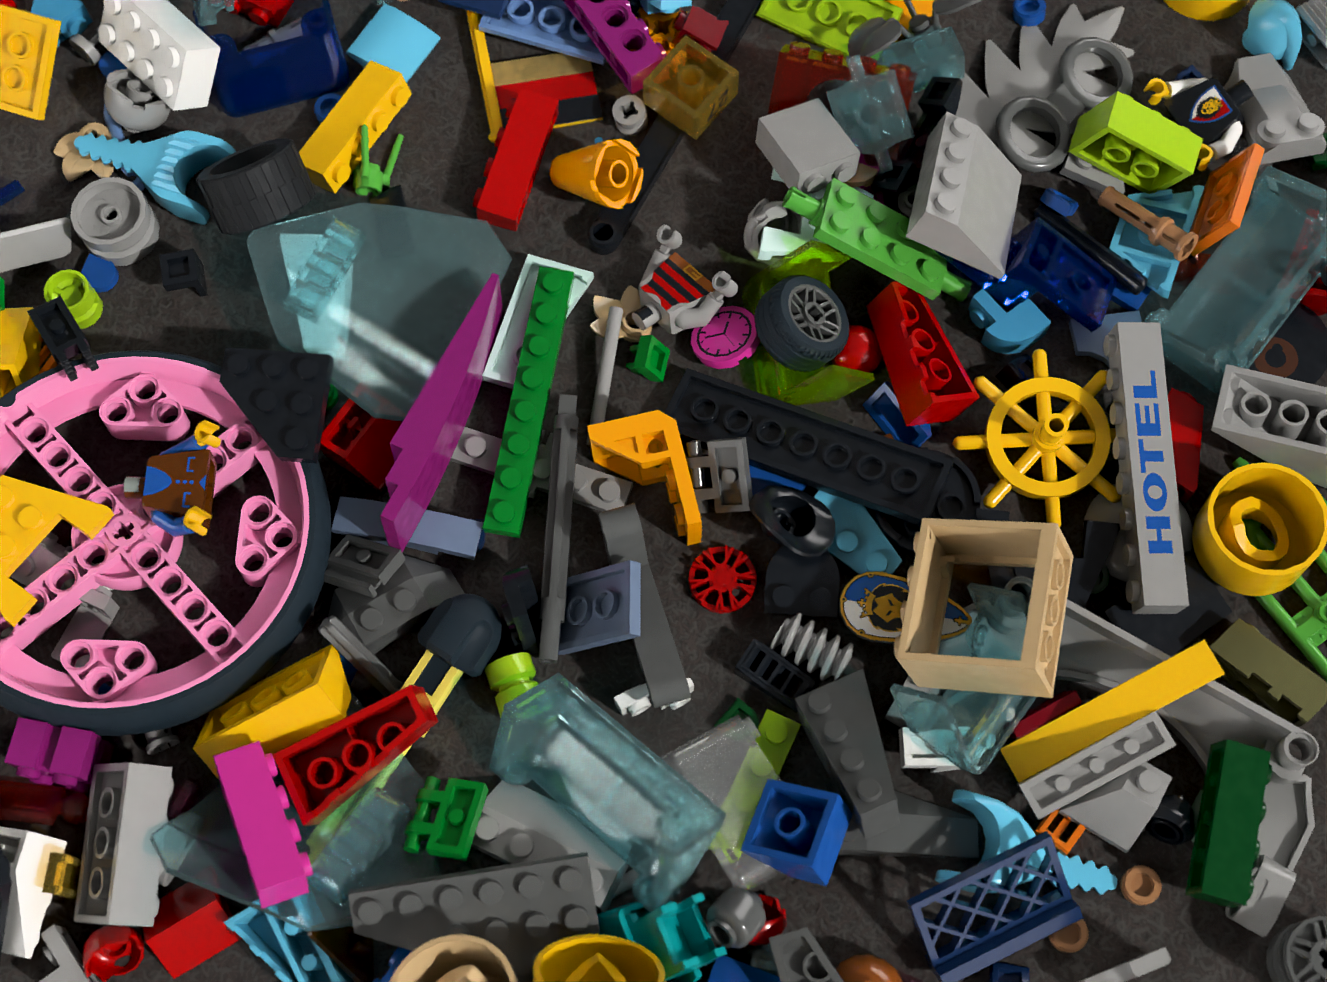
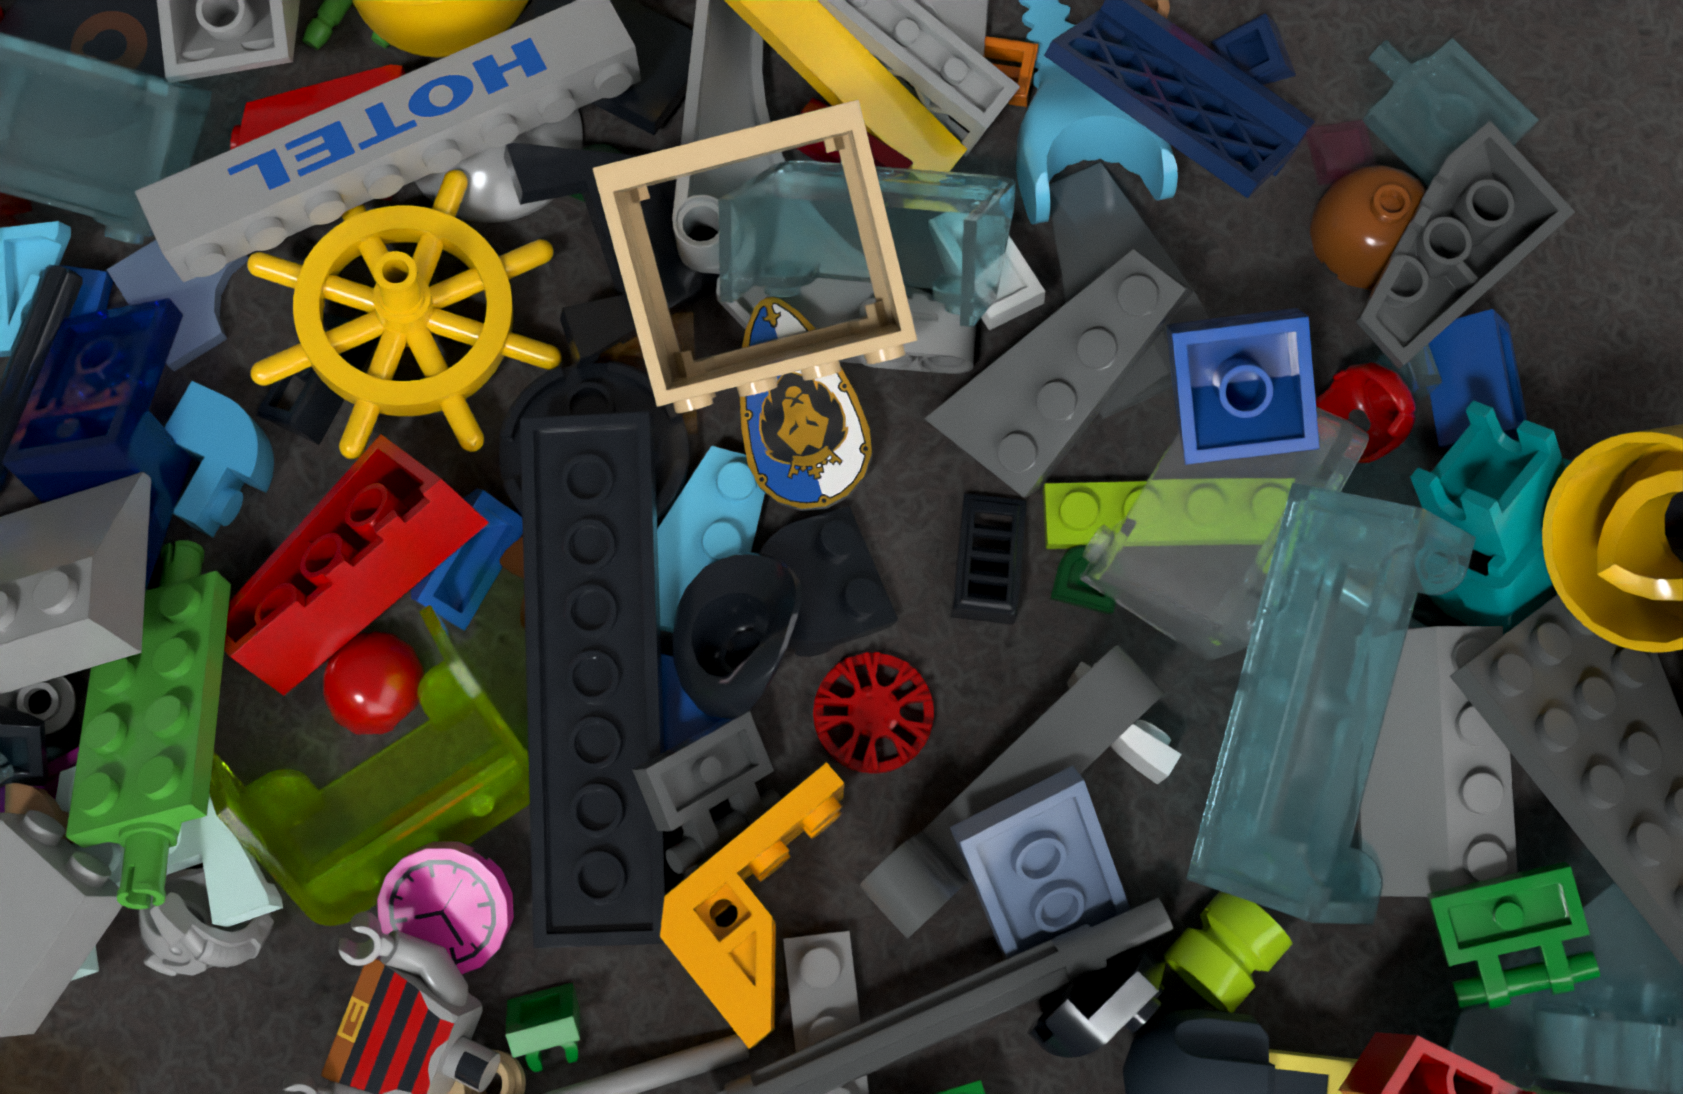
camera: 120 degrees left, 5 degrees up
(735, 918) = (1410, 416): dark grey head -> none
(801, 323) = (371, 778): black wheel -> none
(812, 648) = (917, 513): light grey piece -> none

